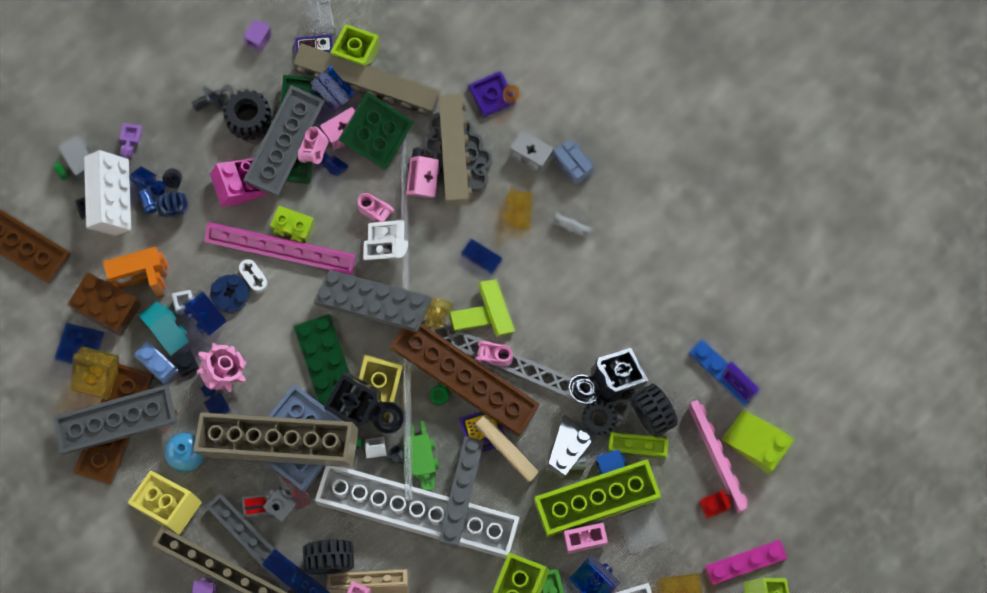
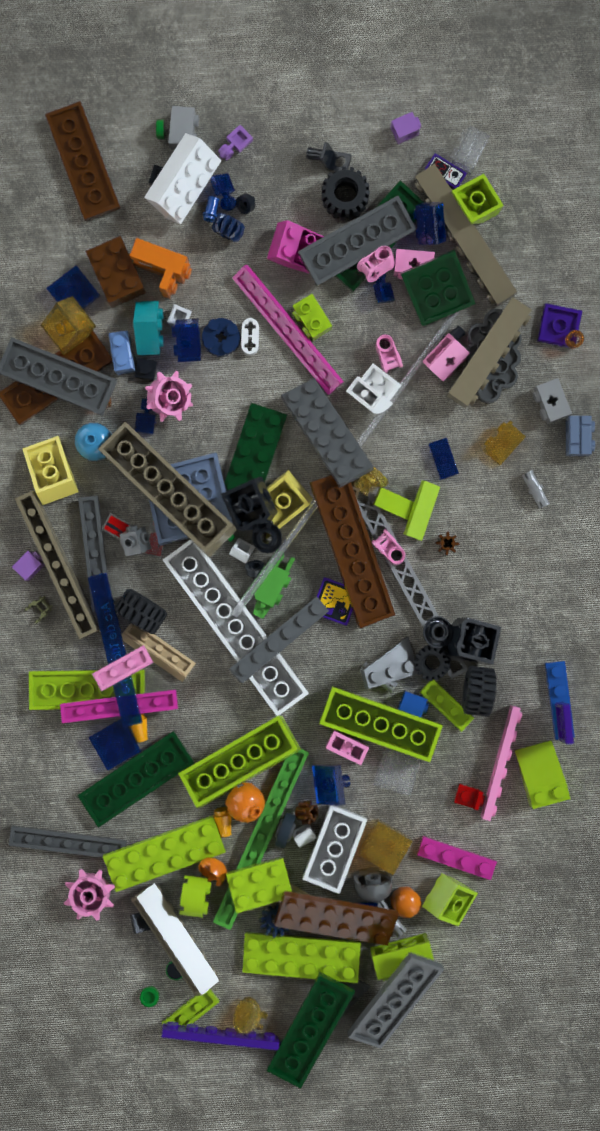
camera: 45 degrees right, 15 degrees up
(439, 395) = (322, 546): green tile -> none
(506, 448) = (341, 630): tan slope -> none
(537, 311) = (452, 544): none -> reddish brown gear

